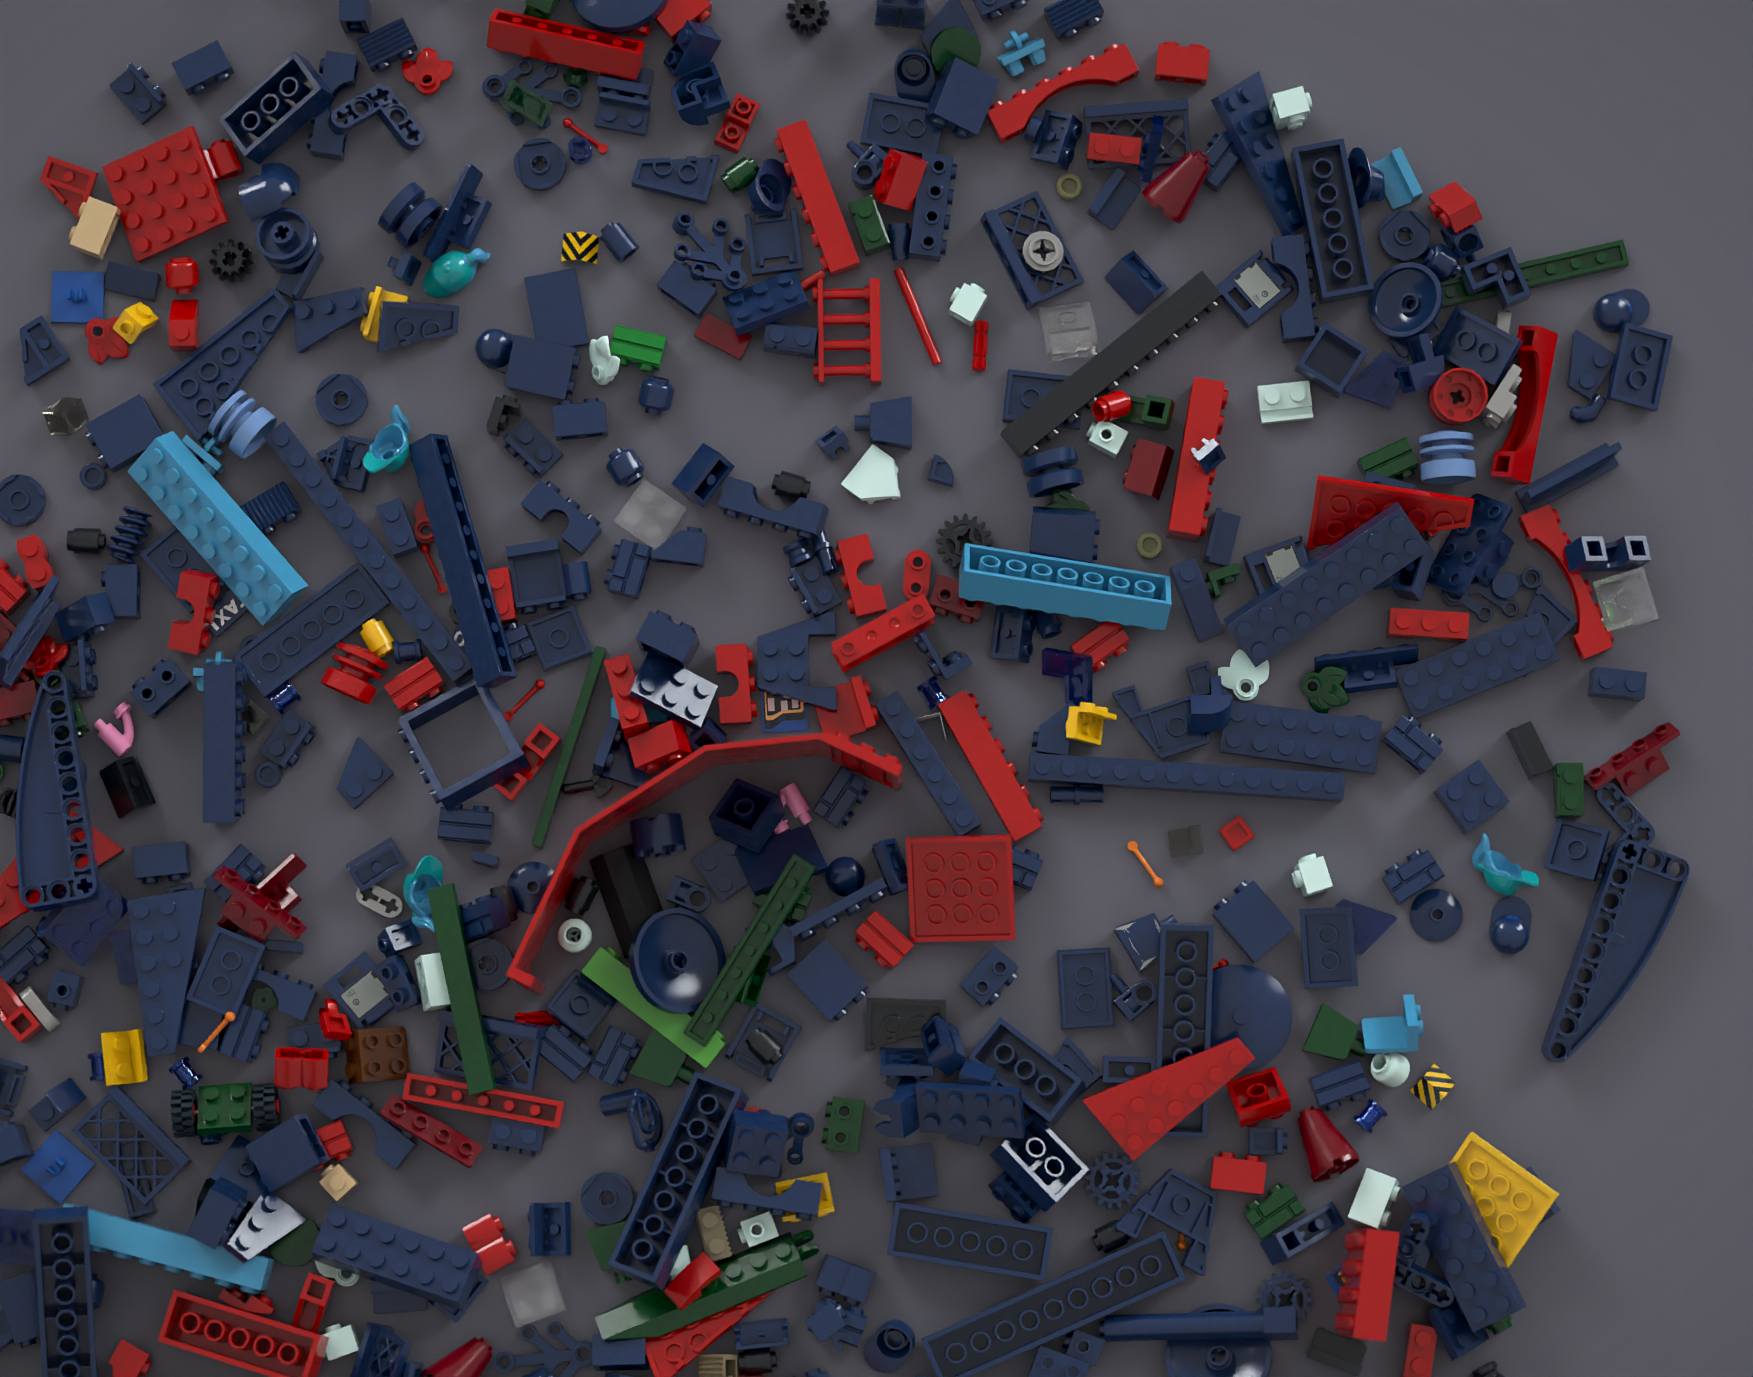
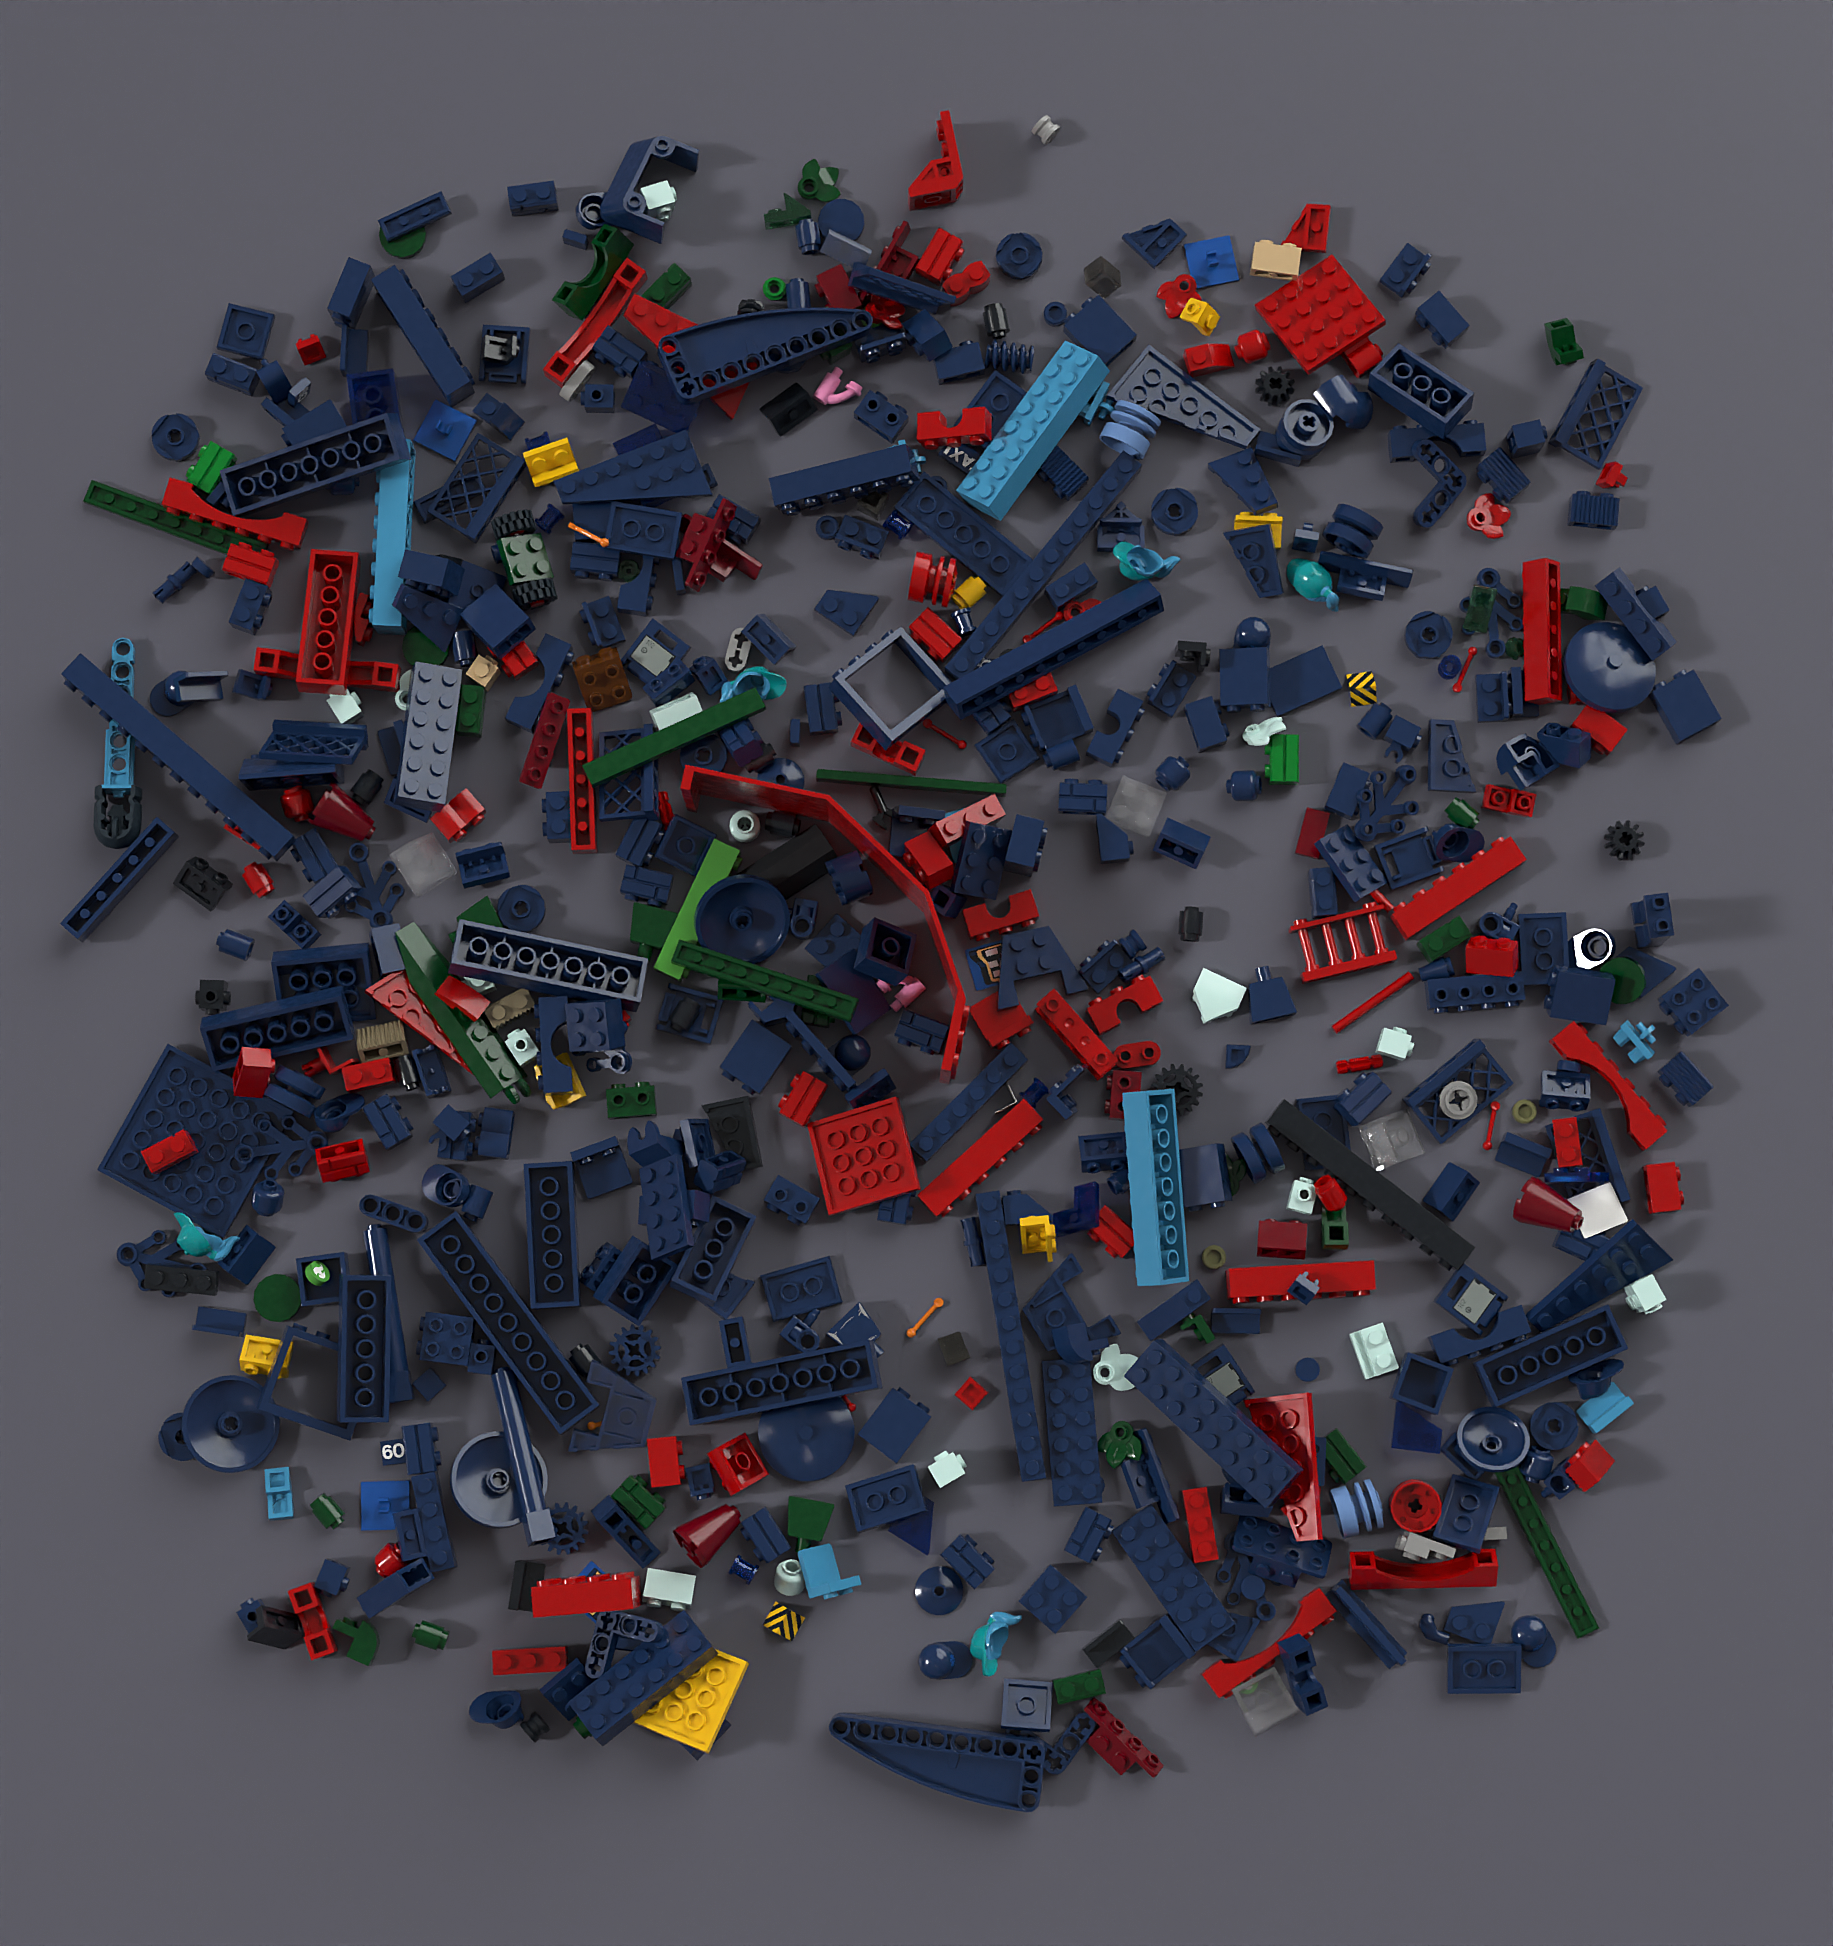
camera: 75 degrees right, 0 degrees up
(132, 281) = (1236, 305): dark blue slope -> none
(161, 861) = (729, 453): dark blue brick -> none
(301, 1068) = (574, 615): red brick -> none
(306, 1197) = (464, 648): none -> dark blue brick
(332, 1023) = (619, 635): red plate -> none
(377, 1205) = (471, 711): none -> dark green brick
(434, 1338) = (366, 787): none -> black brick
(628, 1102) = (610, 911): dark blue piece -> none
(642, 218) = (1402, 736): none -> dark blue brick
(803, 517) = (1164, 940): dark blue arch -> none
(831, 441) = (1240, 951): dark blue tile -> none
(916, 1316) = (476, 1203): none -> dark blue brick
(1018, 350) = (1362, 1098): none -> dark blue brick
(1056, 216) = (1494, 1106): none -> red hinge
(1155, 1102) = (712, 1373): red wing -> none
(1191, 132) = (1600, 1209): none -> white sticker
(1289, 476) = (1307, 1369): none -> dark blue tile
(1425, 366) = (1434, 1470): dark blue brick -> none
(1497, 271) = (1539, 1521): dark blue brick -> none
(1550, 701) = (1156, 1652): none -> dark blue panel
(1617, 684) = (1186, 1710): dark blue brick -> none

